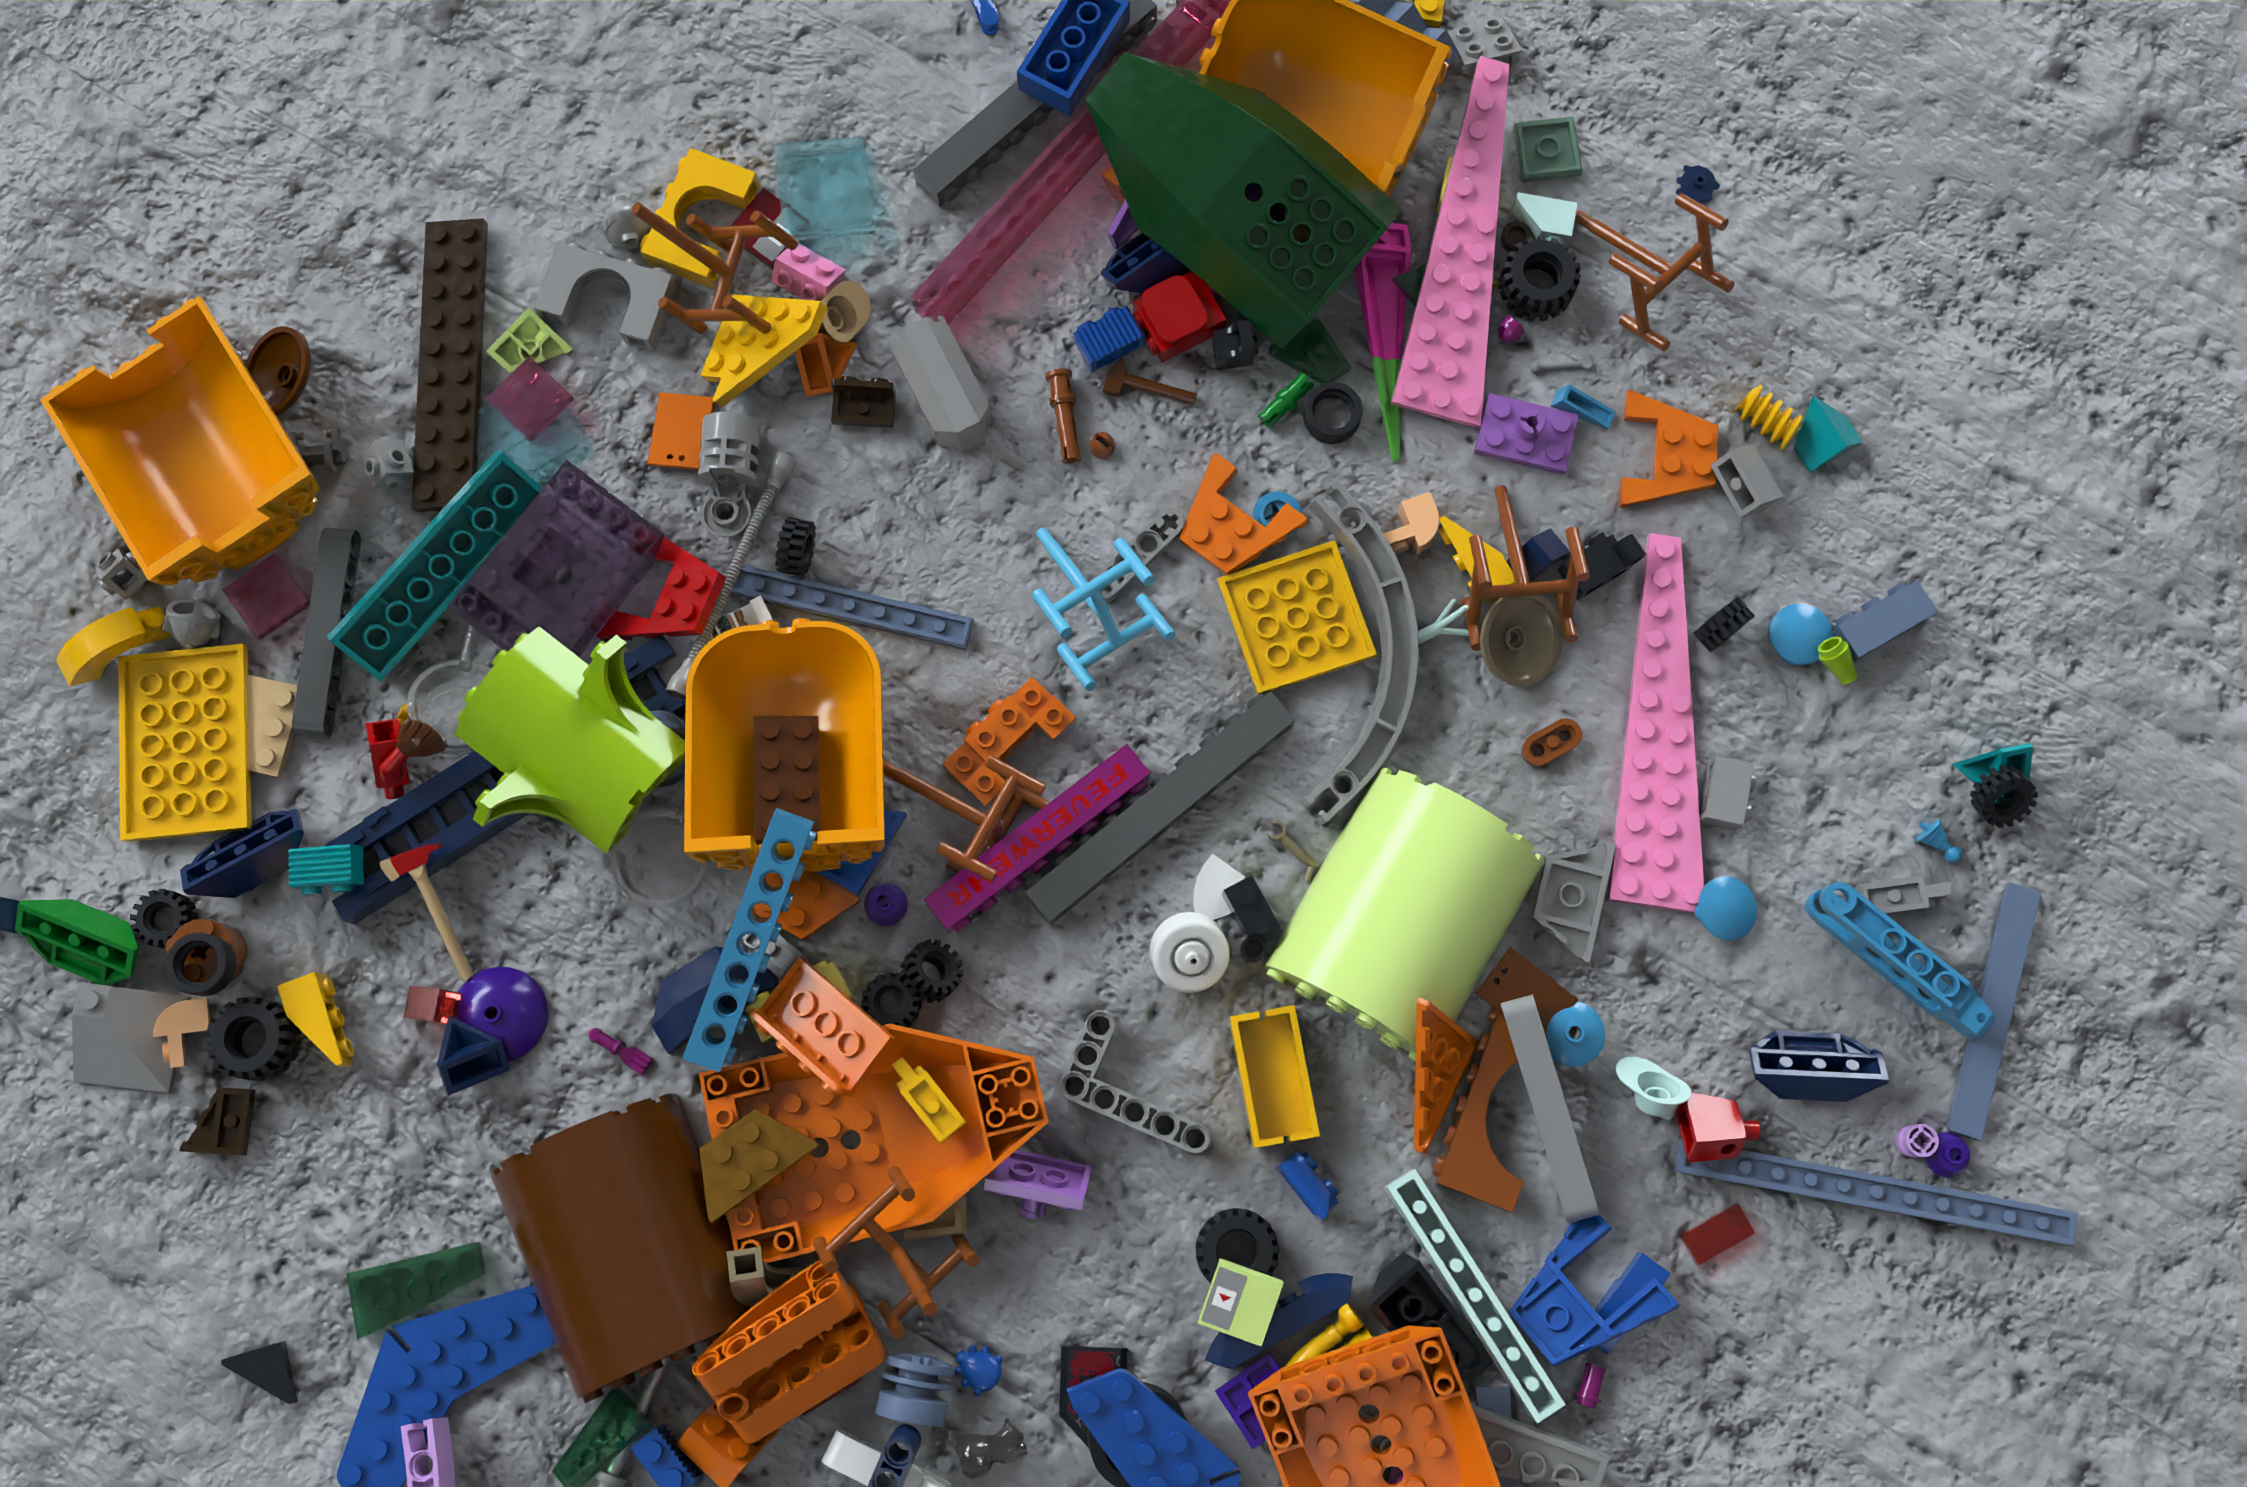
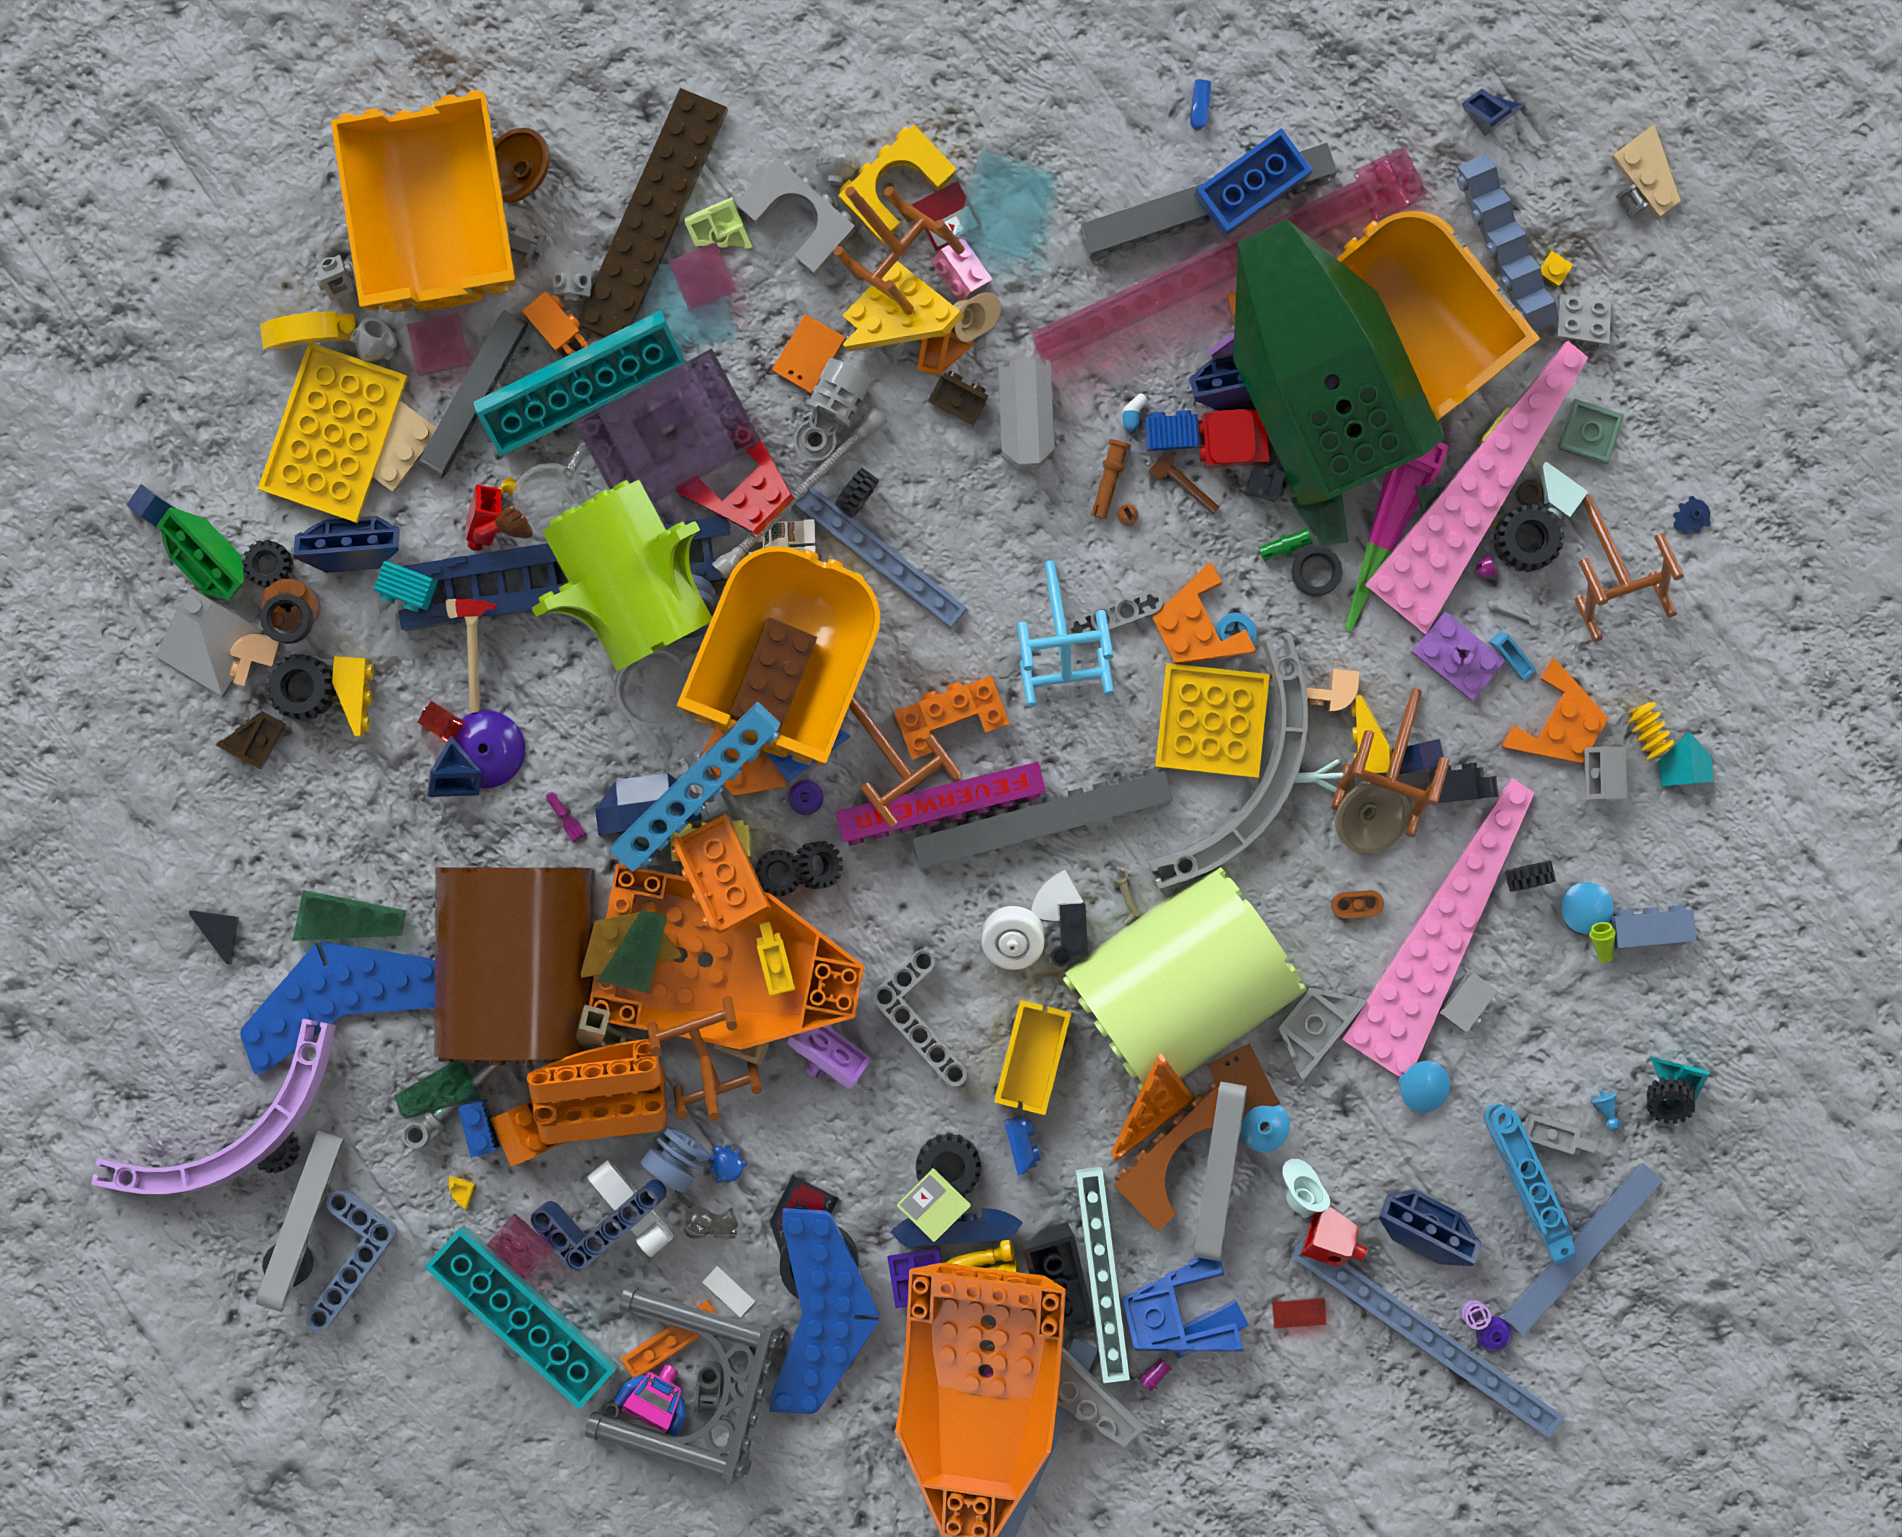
camera: 20 degrees right, 10 degrees up
(385, 518) = (553, 323): none -> orange hinge
(764, 1164) = (637, 954): none -> clear green wing
(1057, 339) = (1131, 412): none -> arm

